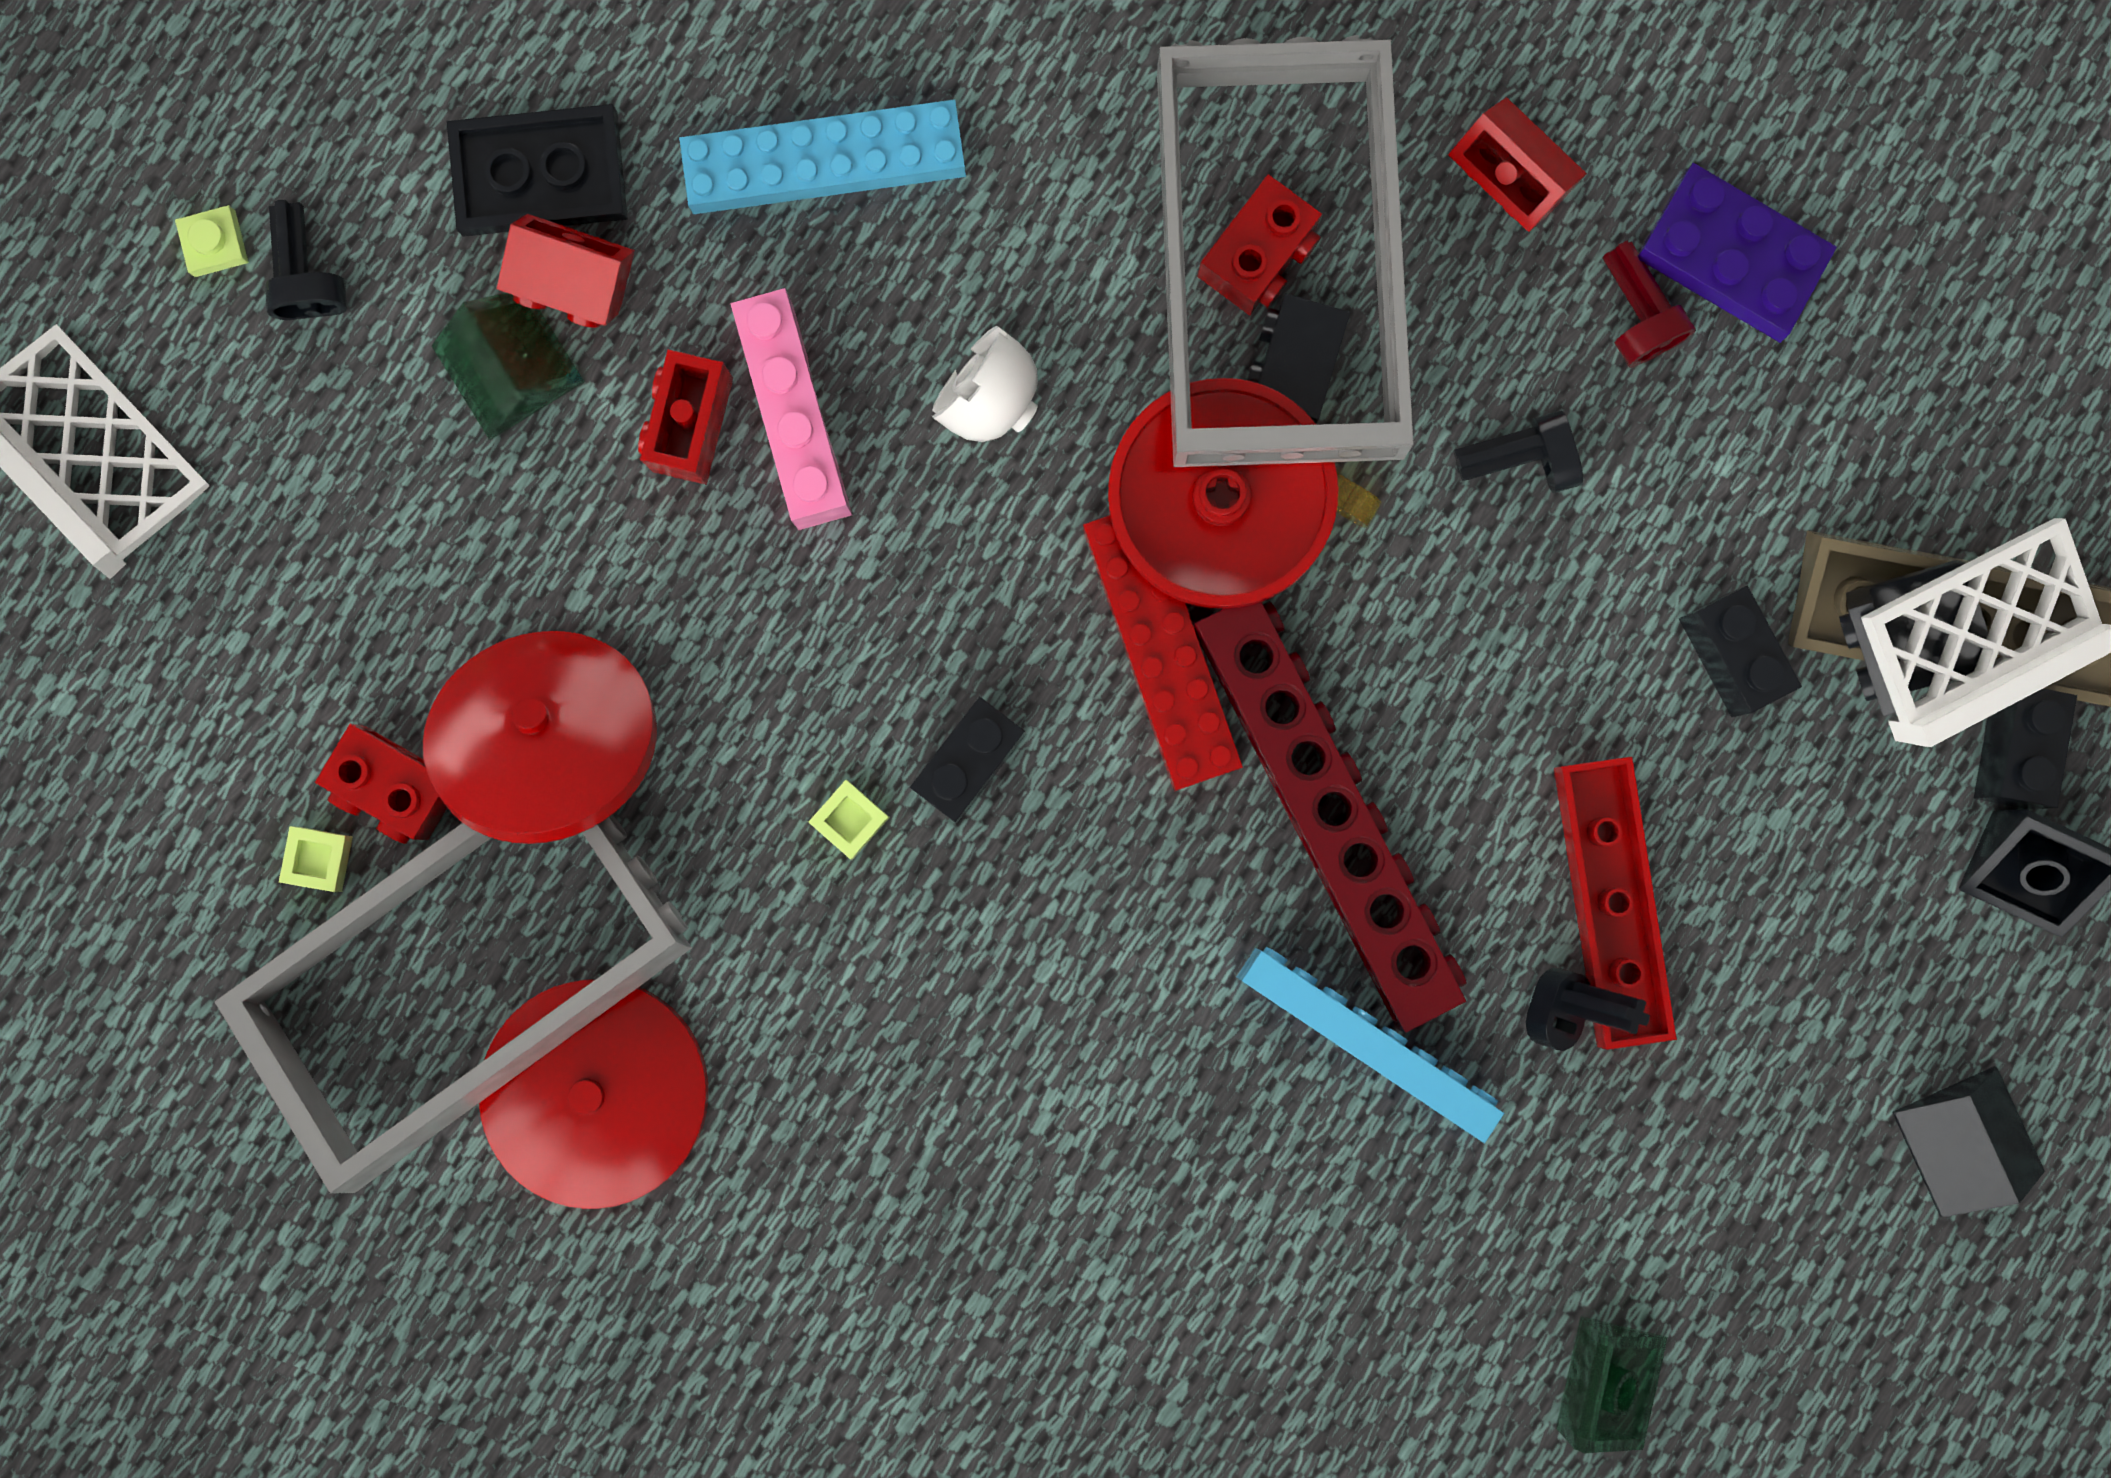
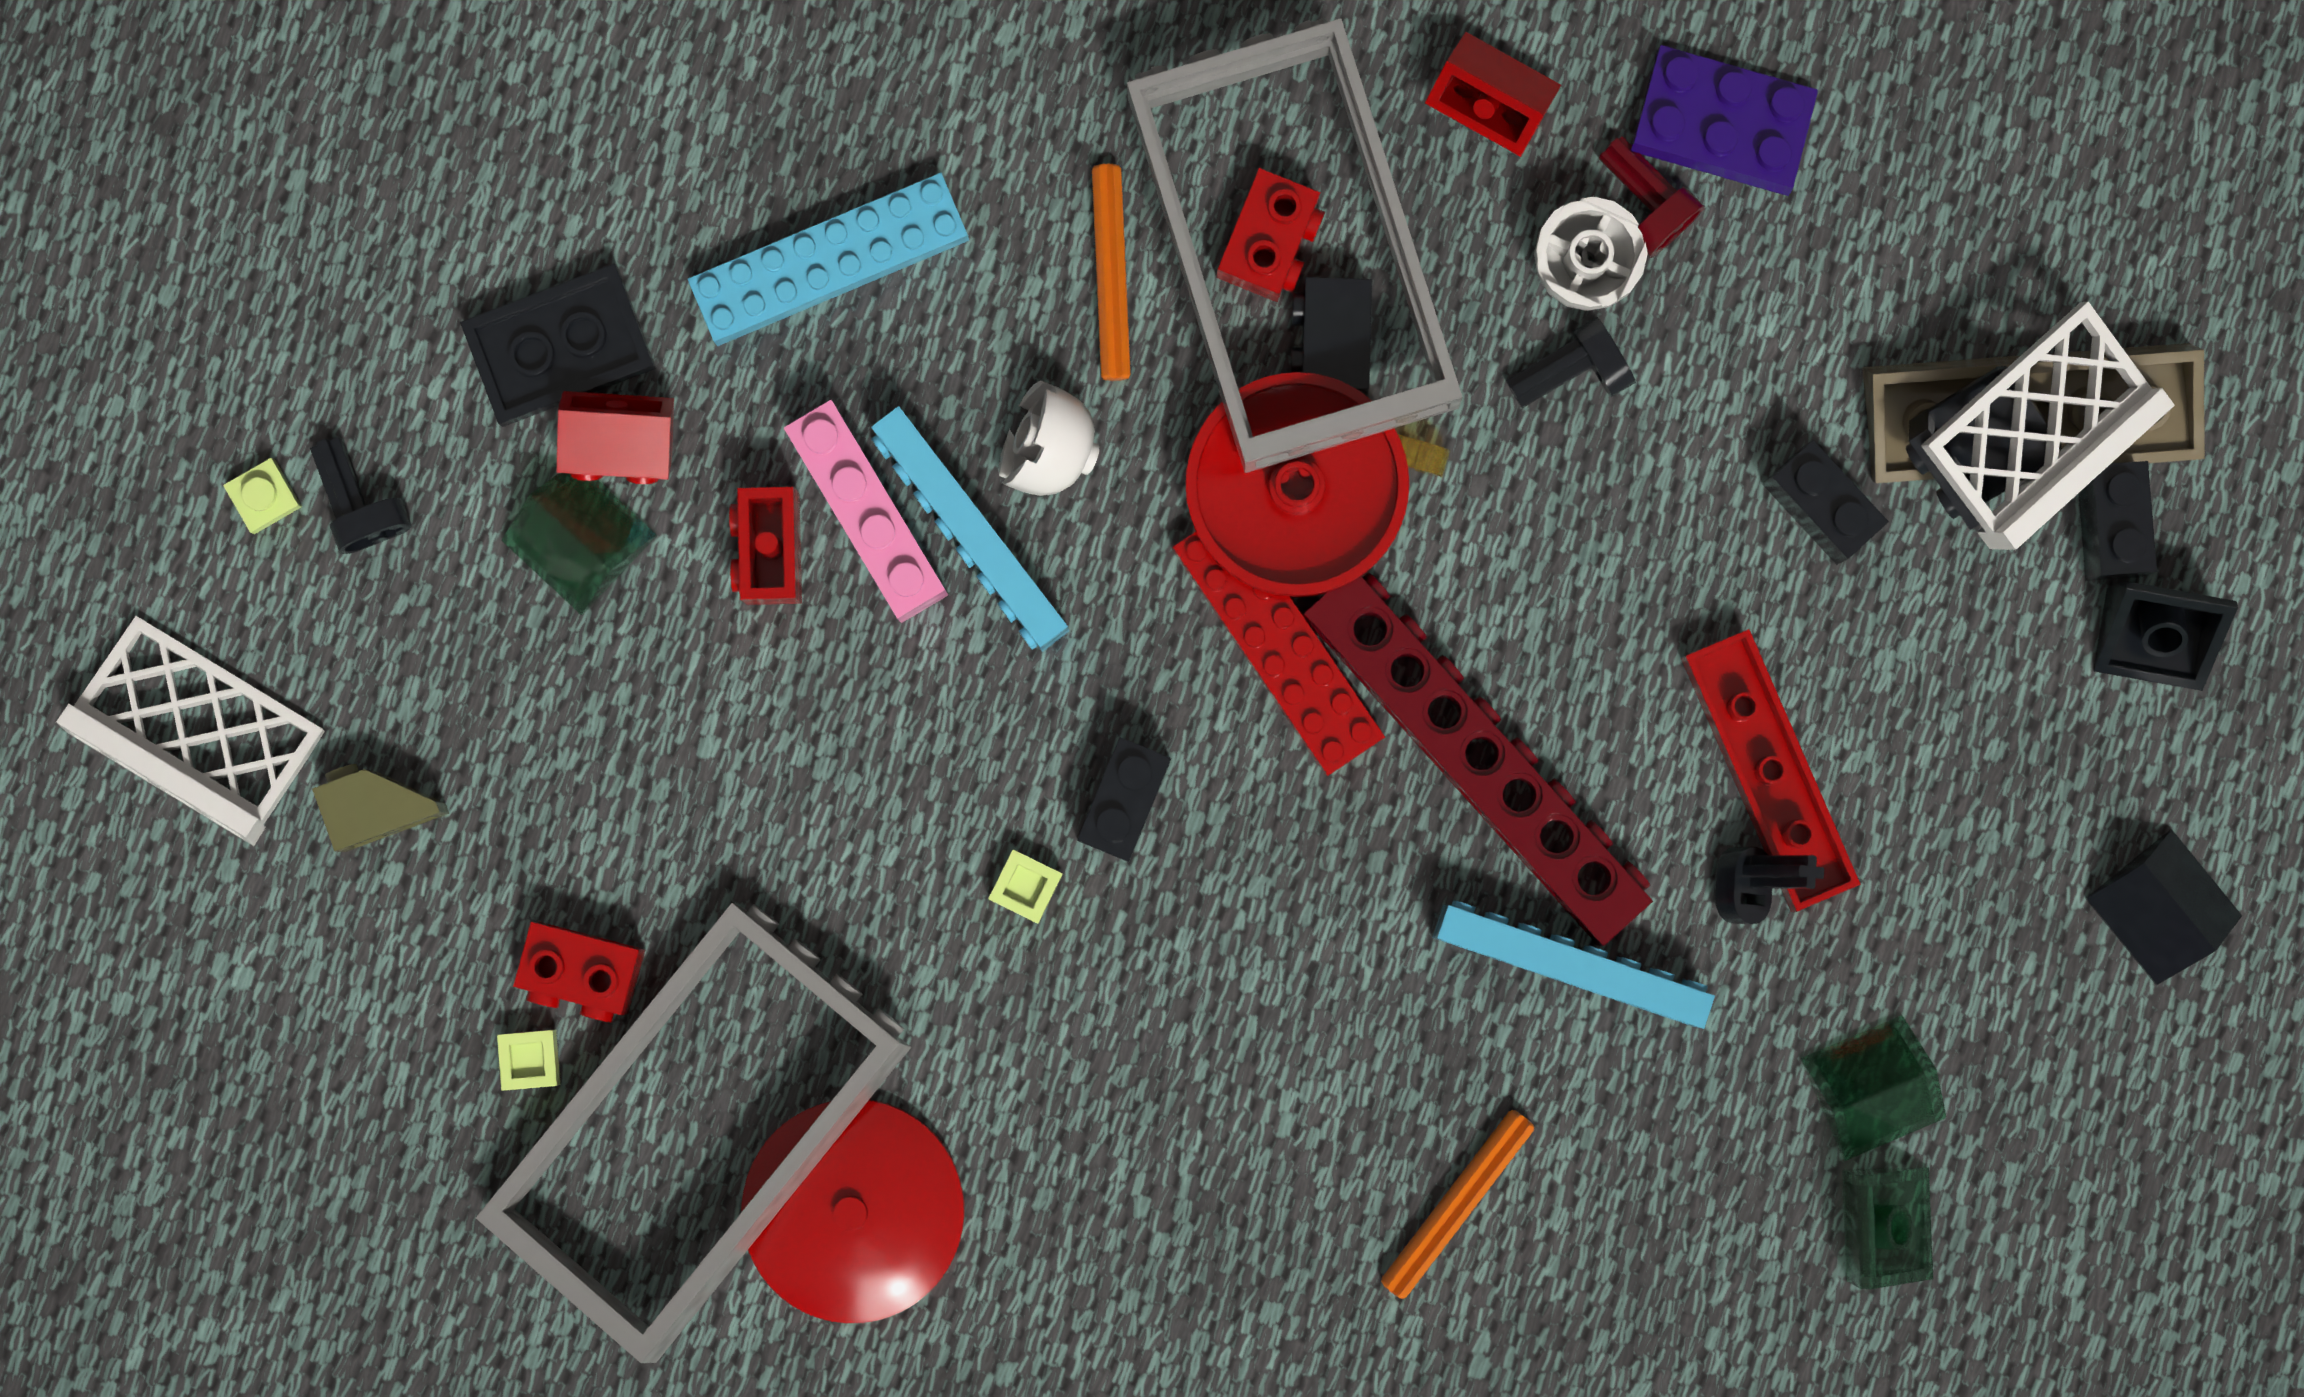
camera: 15 degrees left, 0 degrees up
(228, 569) = (370, 806): none -> olive slope
(540, 737) = (714, 885): red dish -> none
(883, 445) = (963, 521): none -> medium azure piece
(1095, 242) = (1111, 272): none -> orange axle
(1190, 1248) = (1457, 1204): none -> orange axle
(1585, 325) = (1605, 234): none -> white cylinder
(1636, 1243) = (1875, 1087): none -> clear green slope

